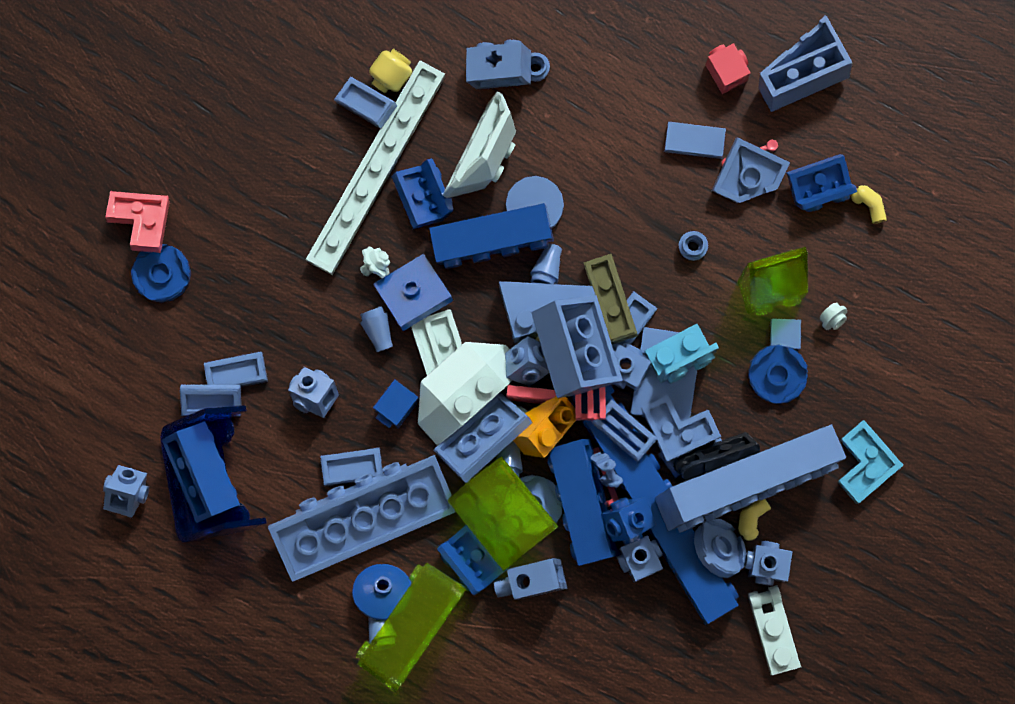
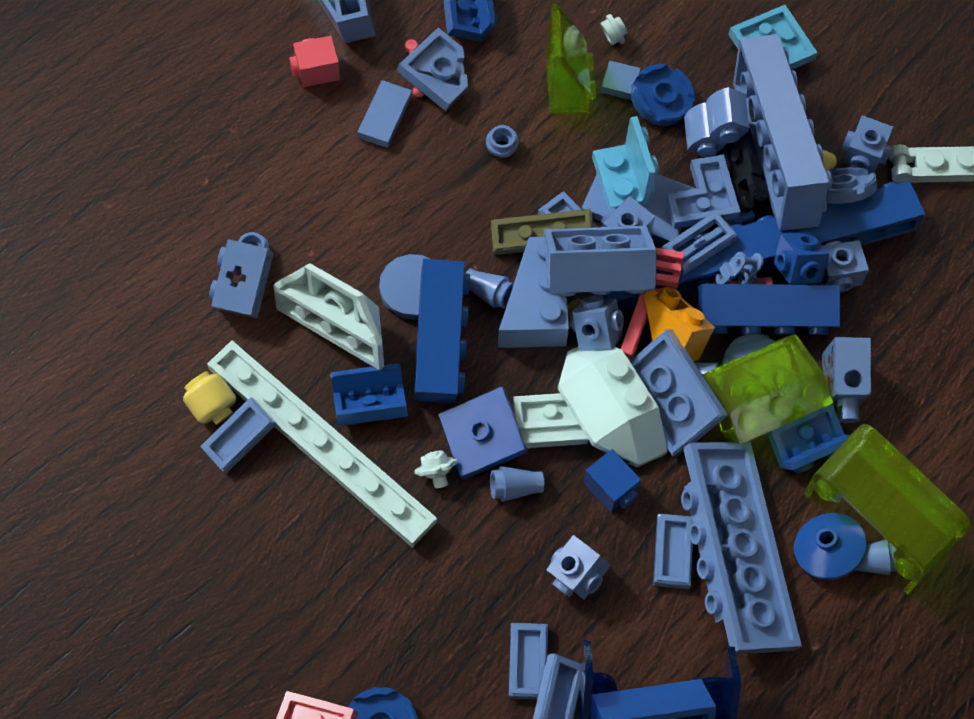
camera: 80 degrees left, 15 degrees down
(751, 424) = (716, 122): none -> medium blue brick

